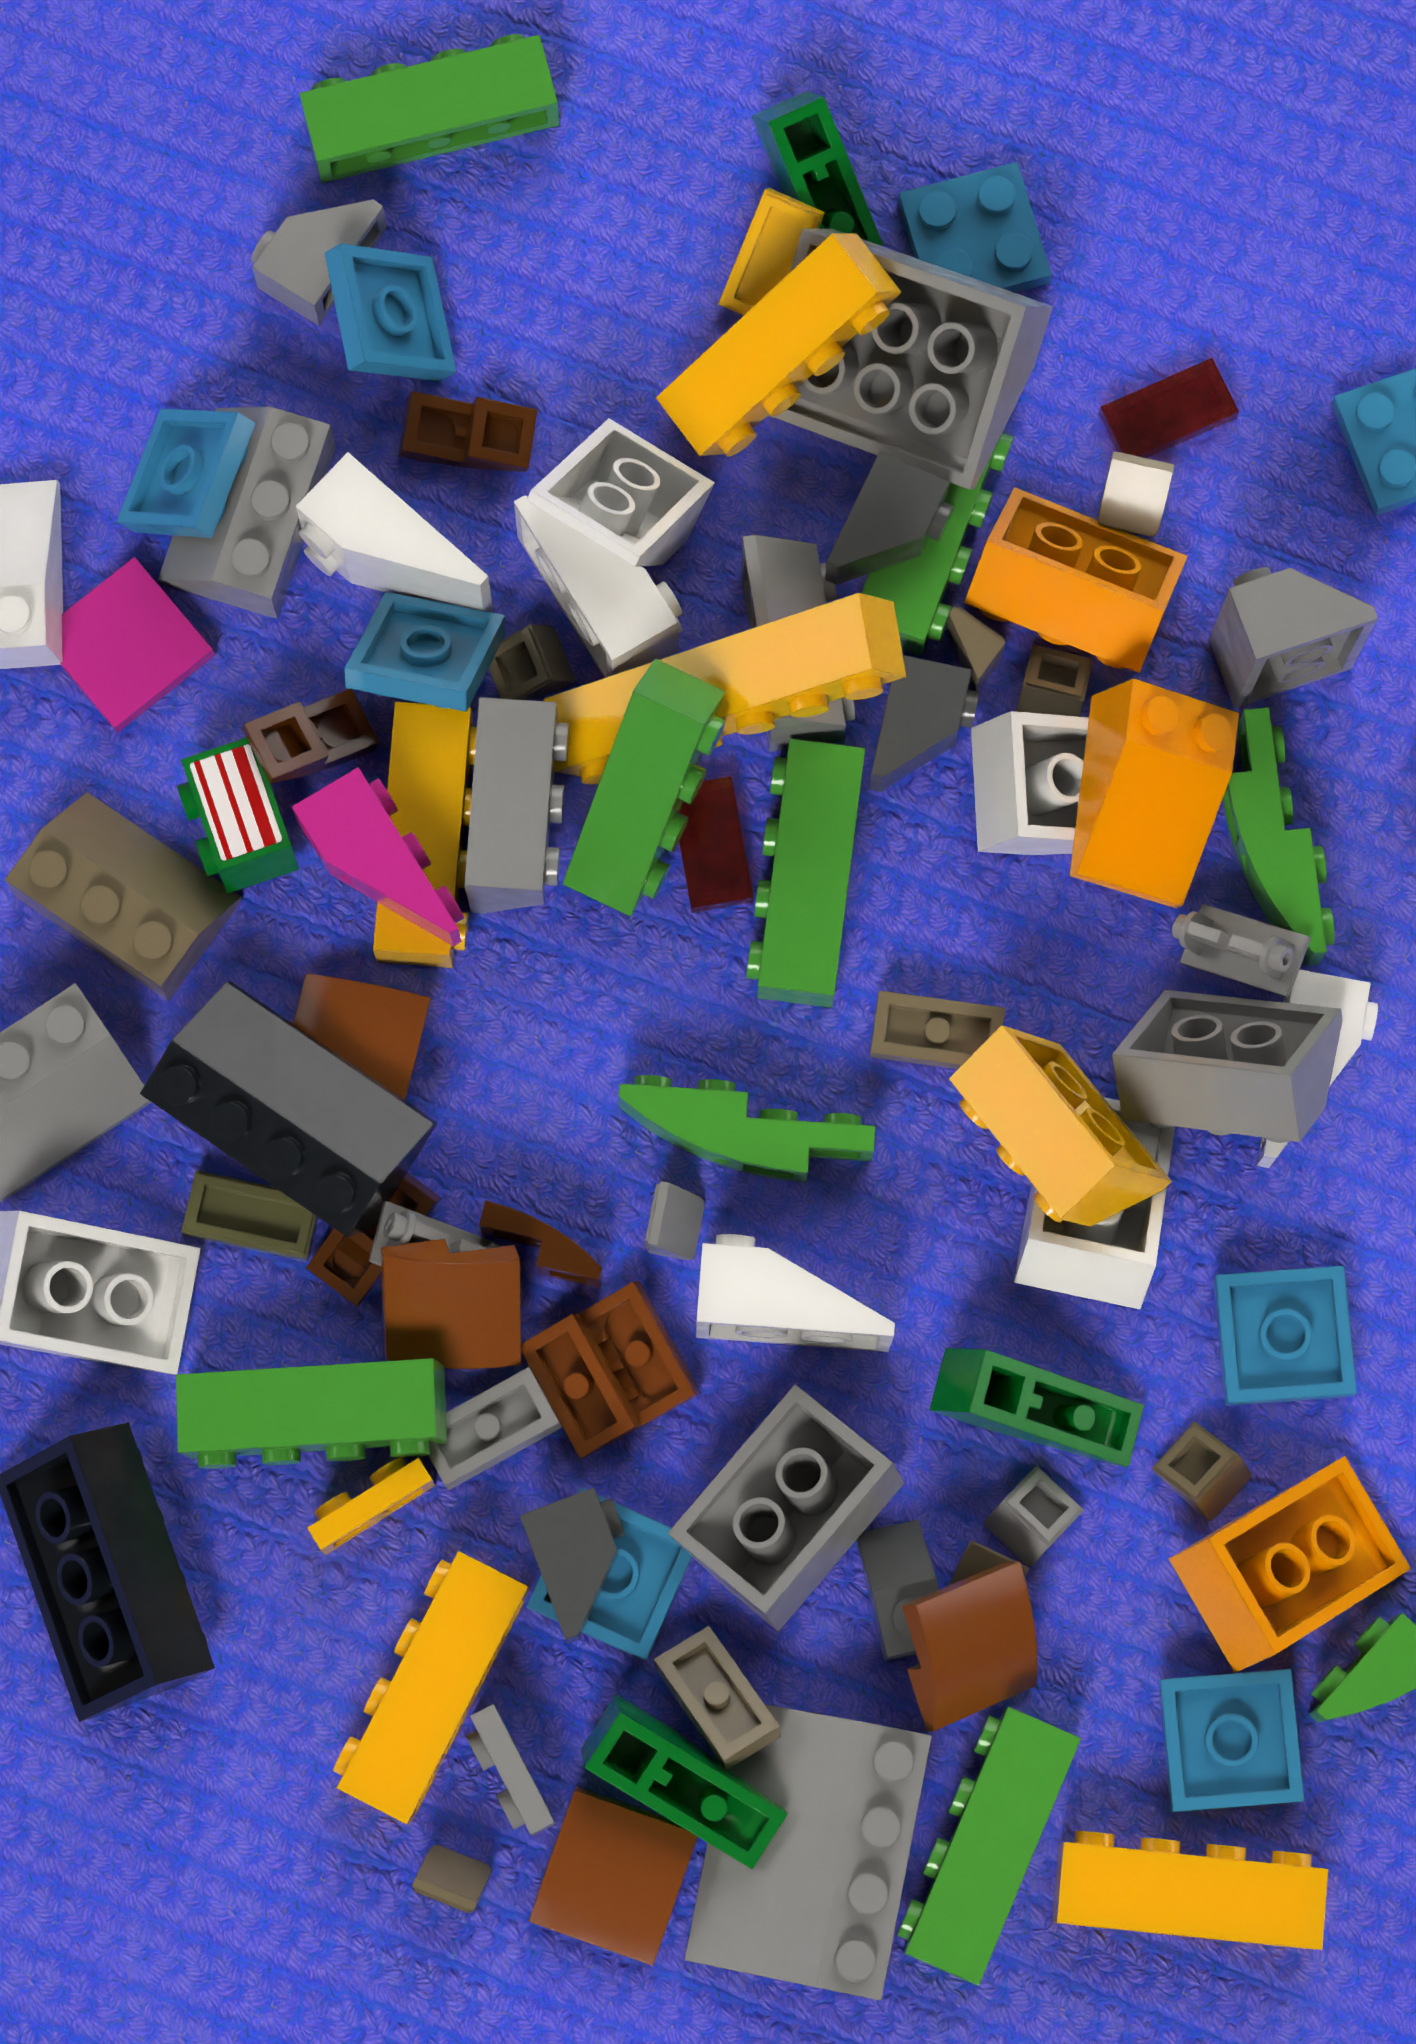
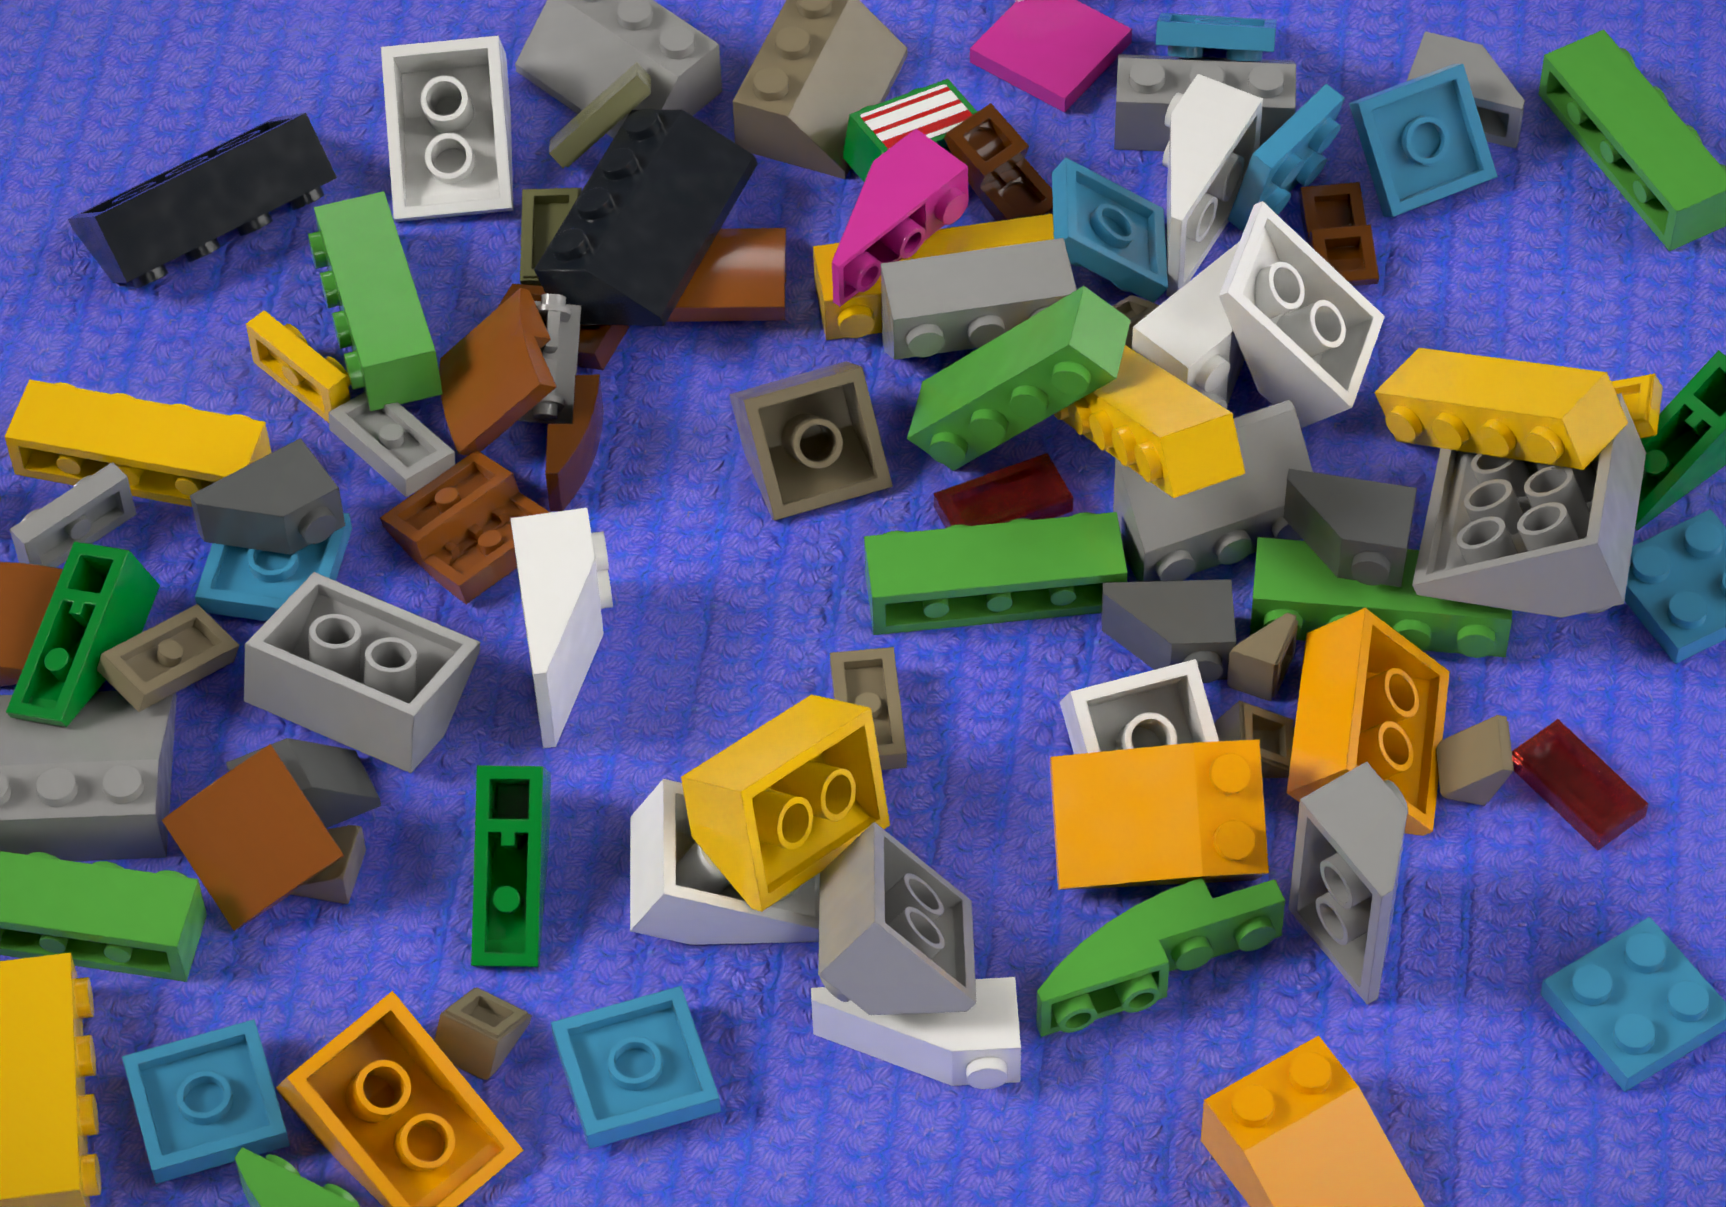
camera: 80 degrees right, 25 degrees down
(126, 1128) = (600, 116): none -> olive tile
(379, 438) = (1289, 156): none -> dark azure plate
(596, 1009) = (811, 439): none -> dark tan slope
(674, 1222) = (628, 535): light grey slope -> none
(716, 1128) = (725, 569): bright green slope -> none
(1032, 1516) = (406, 894): light grey slope -> none
(1241, 948) = (1029, 935): light grey hinge -> none

